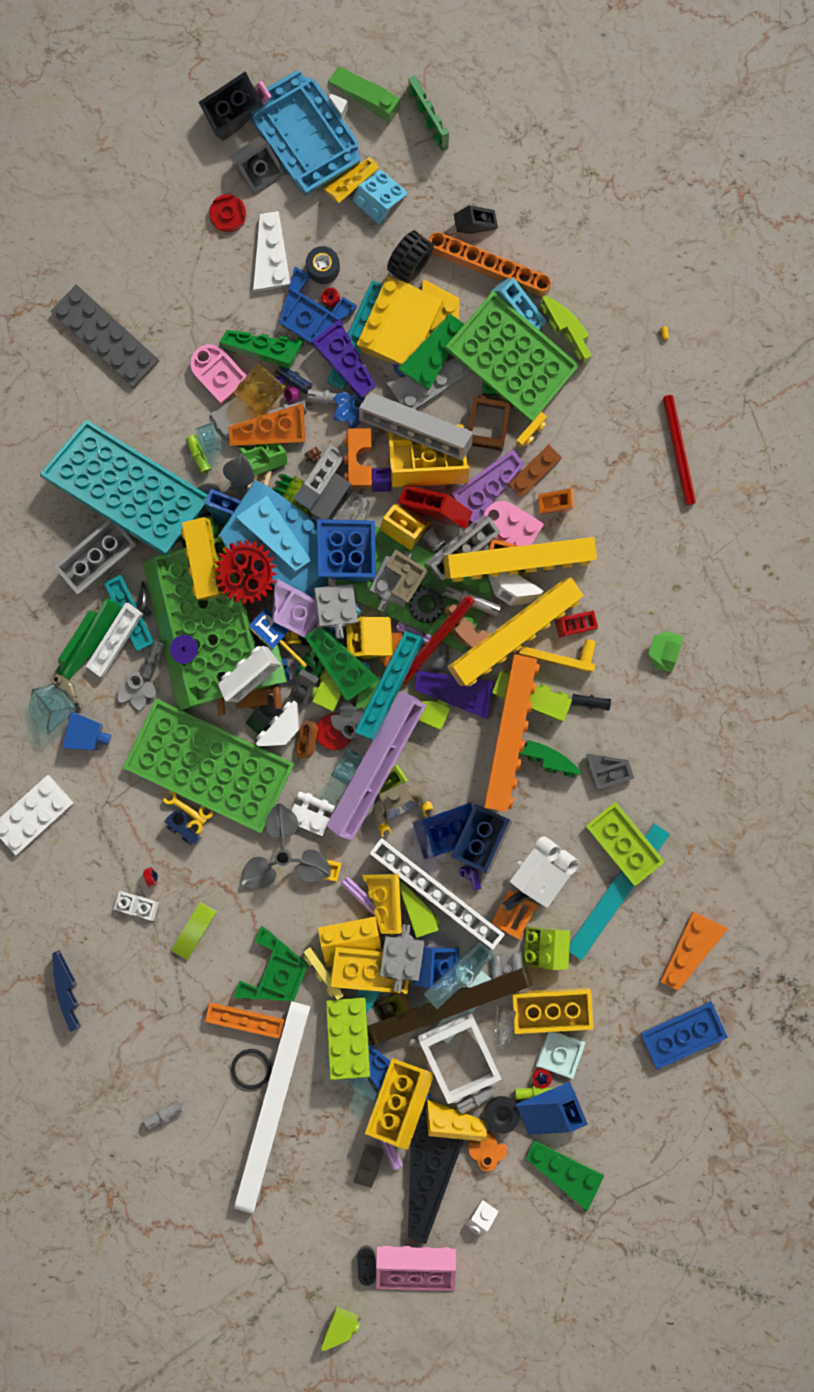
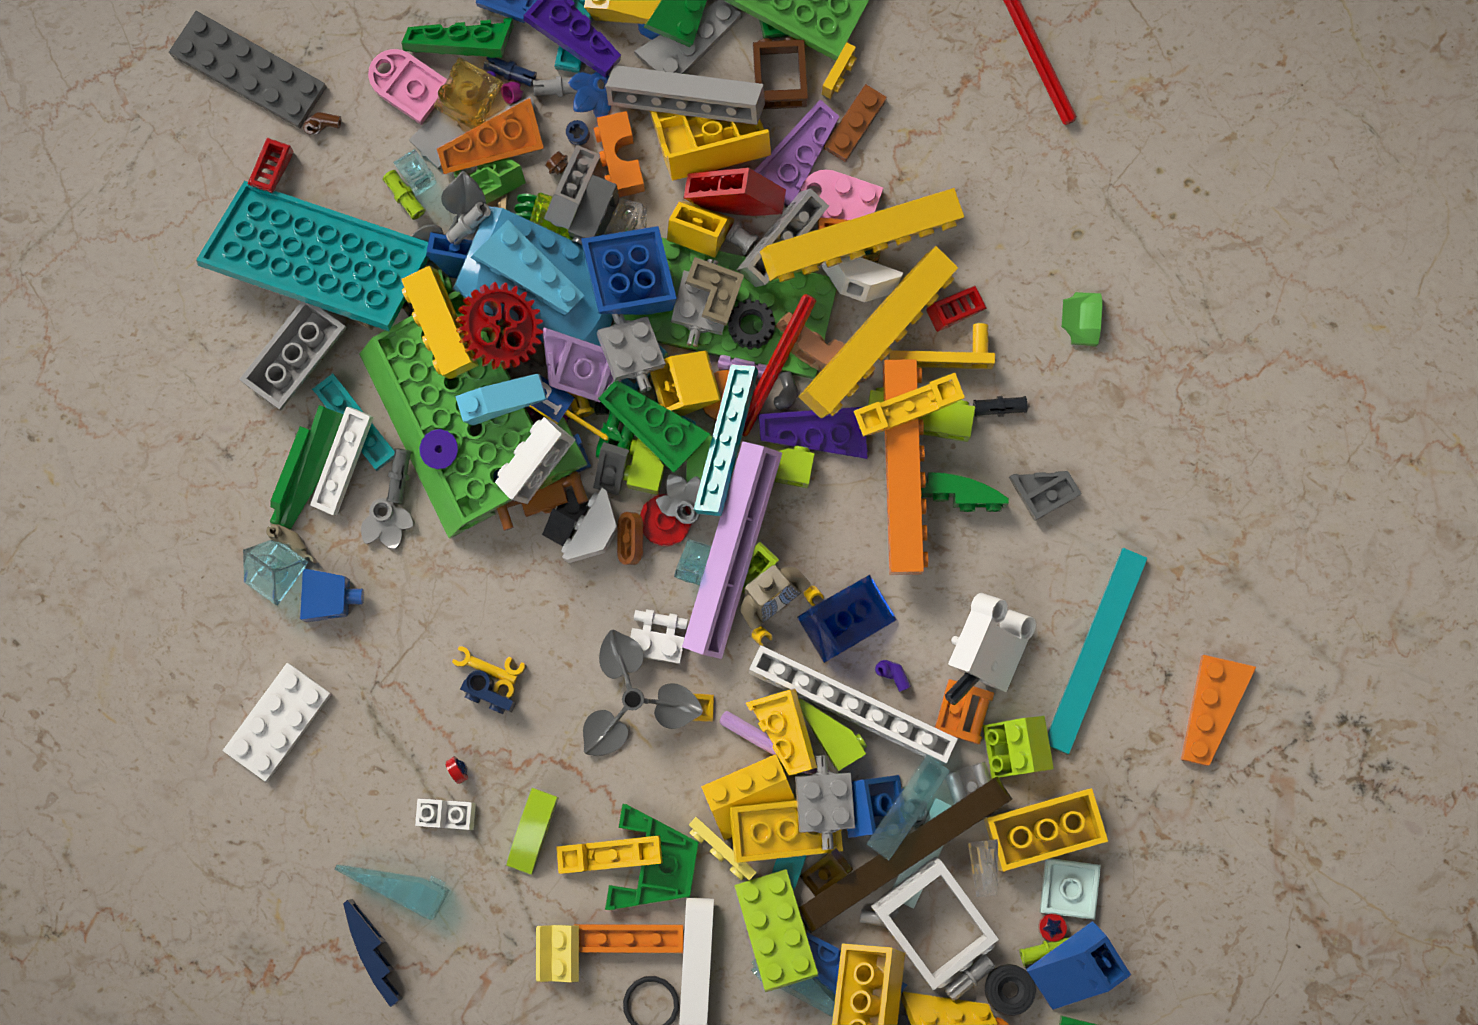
camera: 15 degrees left, 5 degrees down
(102, 955) = (411, 891): none -> clear light blue slope
(109, 397) = (276, 147): none -> red slope
(142, 601) = (368, 402): pearl dark grey bar -> none
(149, 386) = (320, 121): none -> reddish brown arm
(193, 1020) = (557, 953): none -> light yellow bracket
(208, 765) = (504, 602): bright green plate -> none
(234, 624) = (500, 399): none -> medium azure slope
(238, 489) = (468, 223): none -> light grey pin
(244, 959) = (609, 854): none -> yellow slope
(327, 437) = (577, 124): none -> dark blue bush
(381, 479) = (655, 177): dark purple slope -> none
(480, 603) = (821, 307): light grey pin -> none
(481, 838) = (896, 618): dark blue slope -> none
(523, 692) = (909, 406): none -> yellow slope
(556, 501) = (893, 153): orange slope -> none
(625, 844) = (1090, 583): lime plate -> none
(683, 1035) = (1231, 824): blue plate -> none

